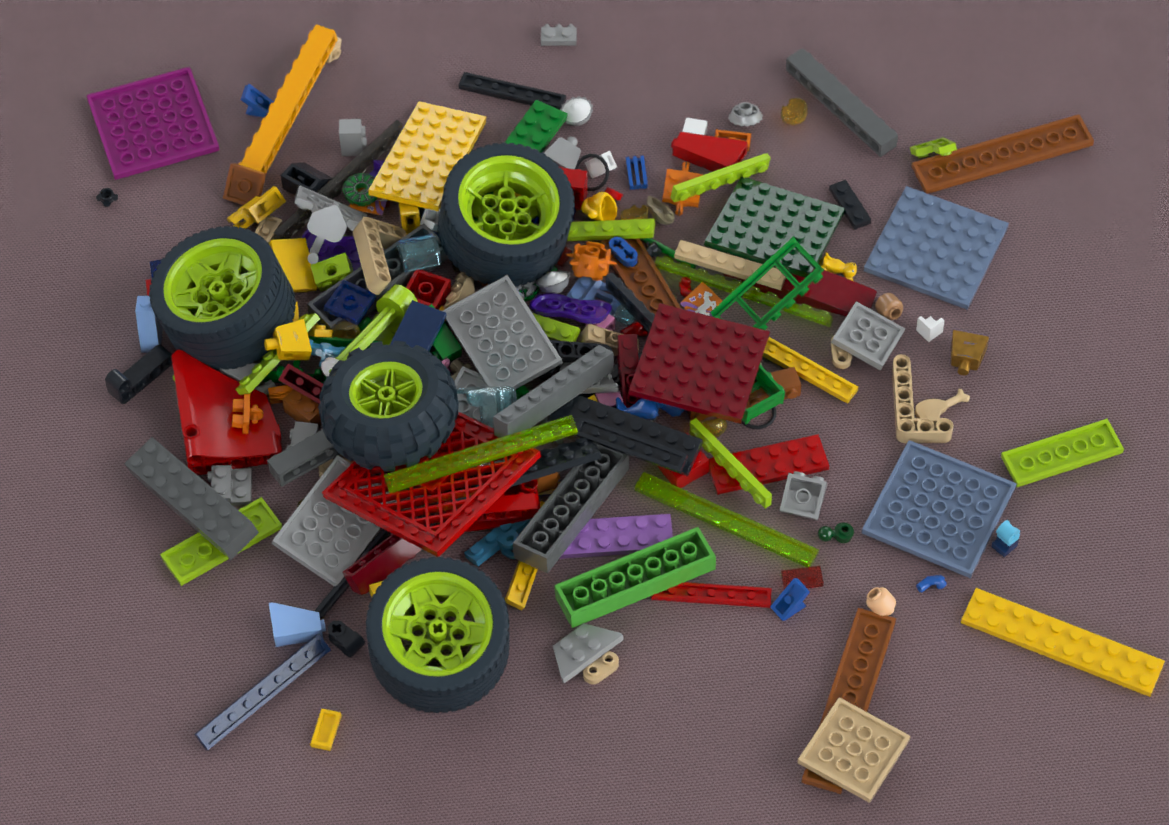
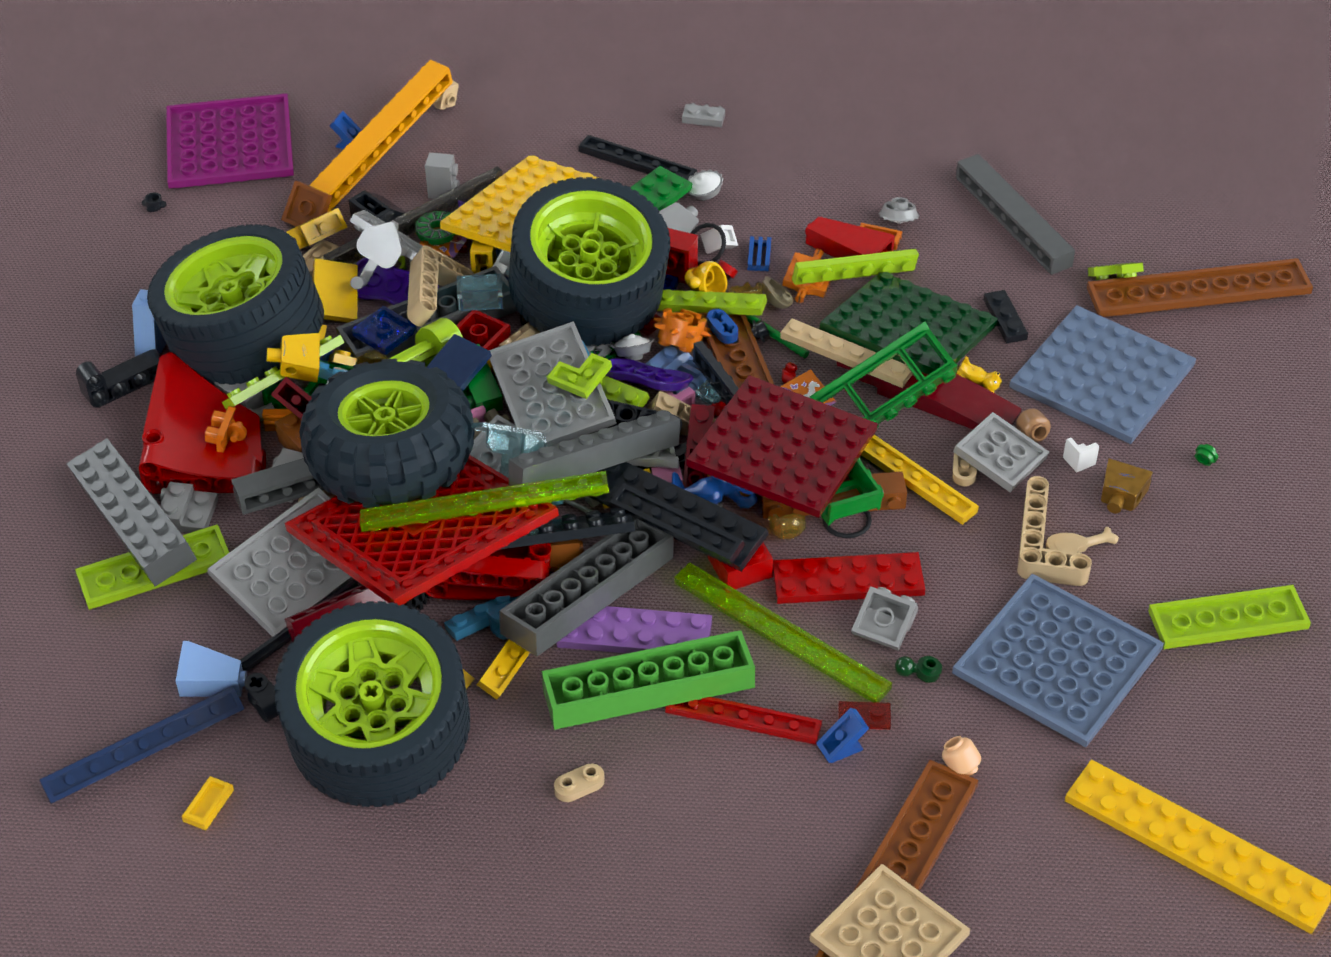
camera: 10 degrees right, 10 degrees down
(322, 271) = (371, 299): lime brick -> none
(527, 330) = (581, 380): none -> lime plate
(583, 648) = (561, 755): light grey wing -> none
(695, 126) = (838, 213): white panel -> none
(731, 464) = (801, 568): lime plate -> none
(754, 294) = (866, 389): clear neon green plate -> none
(794, 112) = (958, 216): clear yellow hair -> none
(937, 580) = (1032, 742): blue arm -> none
(1006, 539) = (1141, 704): leg -> none
(1027, 312) = (1206, 454): none -> green plate

